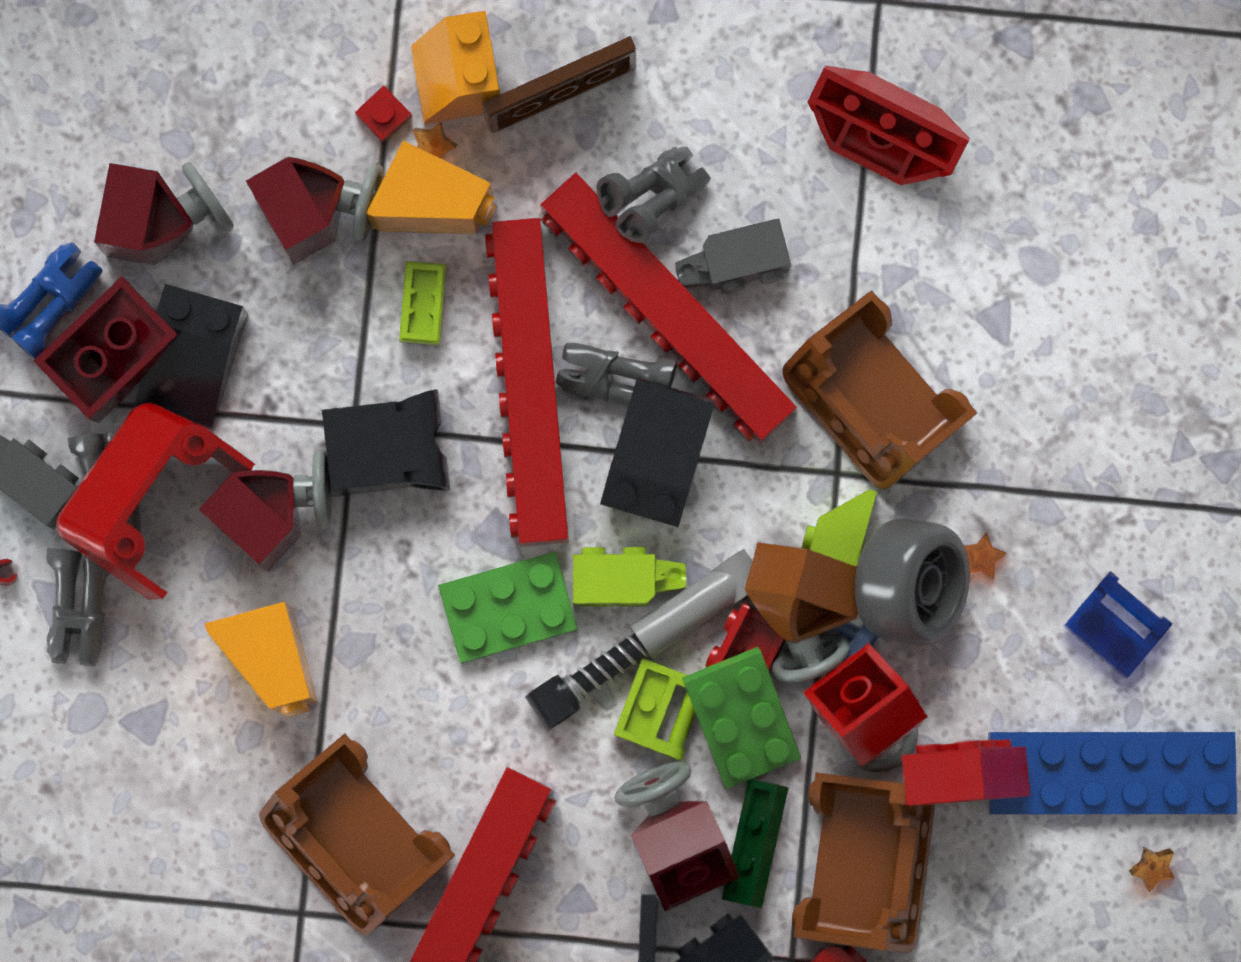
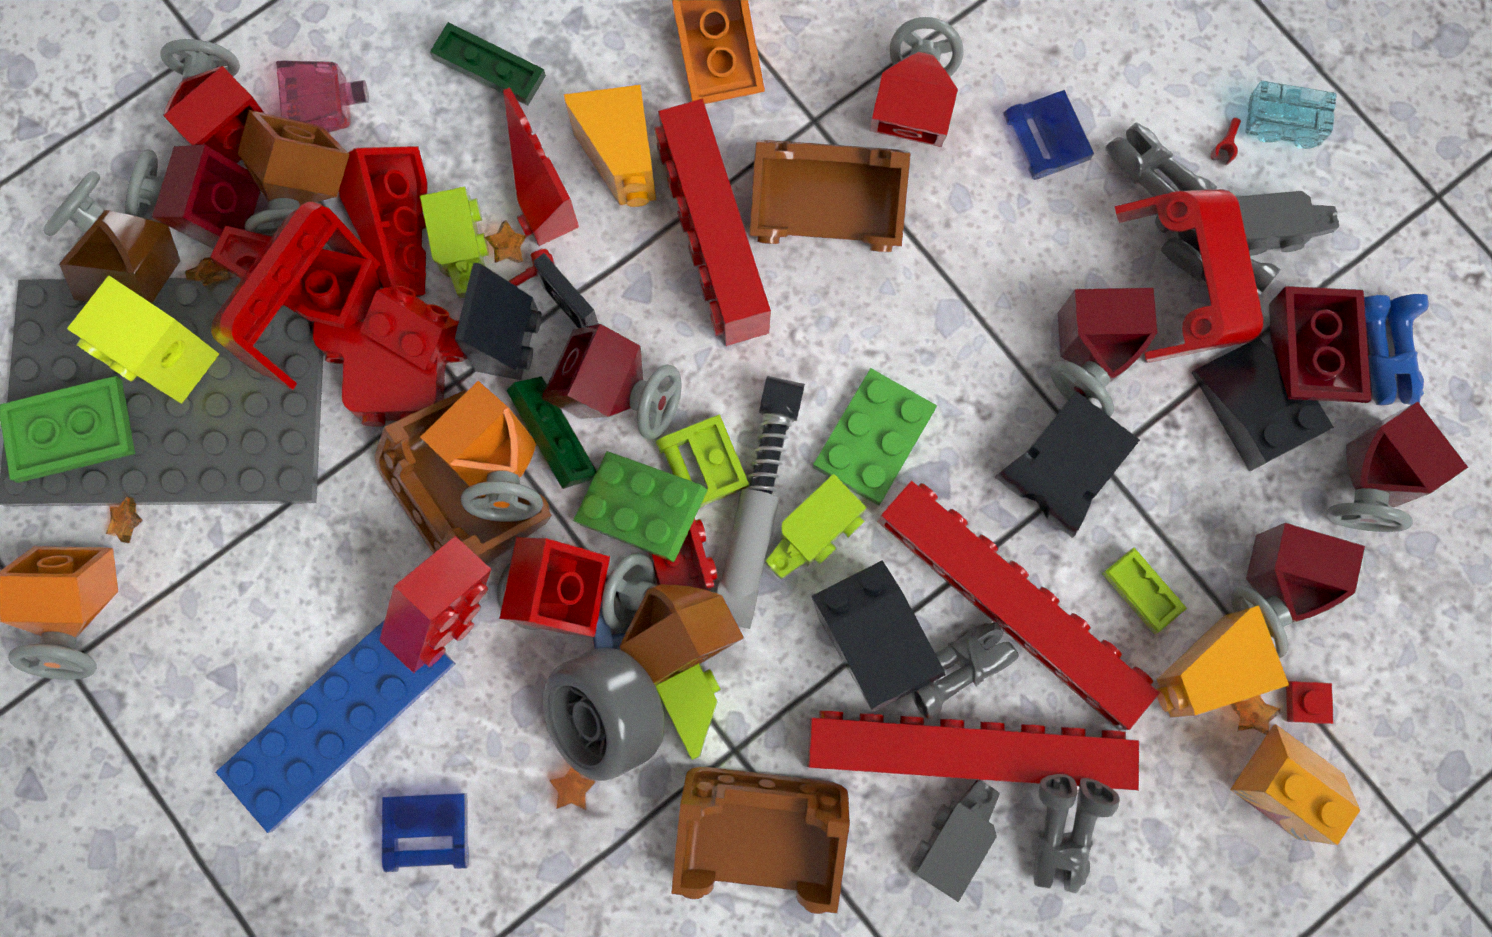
camera: 135 degrees right, 5 degrees down
(115, 715) = (1058, 129): none -> clear blue plate
(213, 845) = (917, 92): none -> red piece
(268, 655) = (1000, 245): light orange slope -> none
(560, 85) = (1216, 847): reddish brown tile -> none
(820, 863) = (489, 453): none -> orange piece
(1153, 867) = (247, 676): clear orange piece -> none

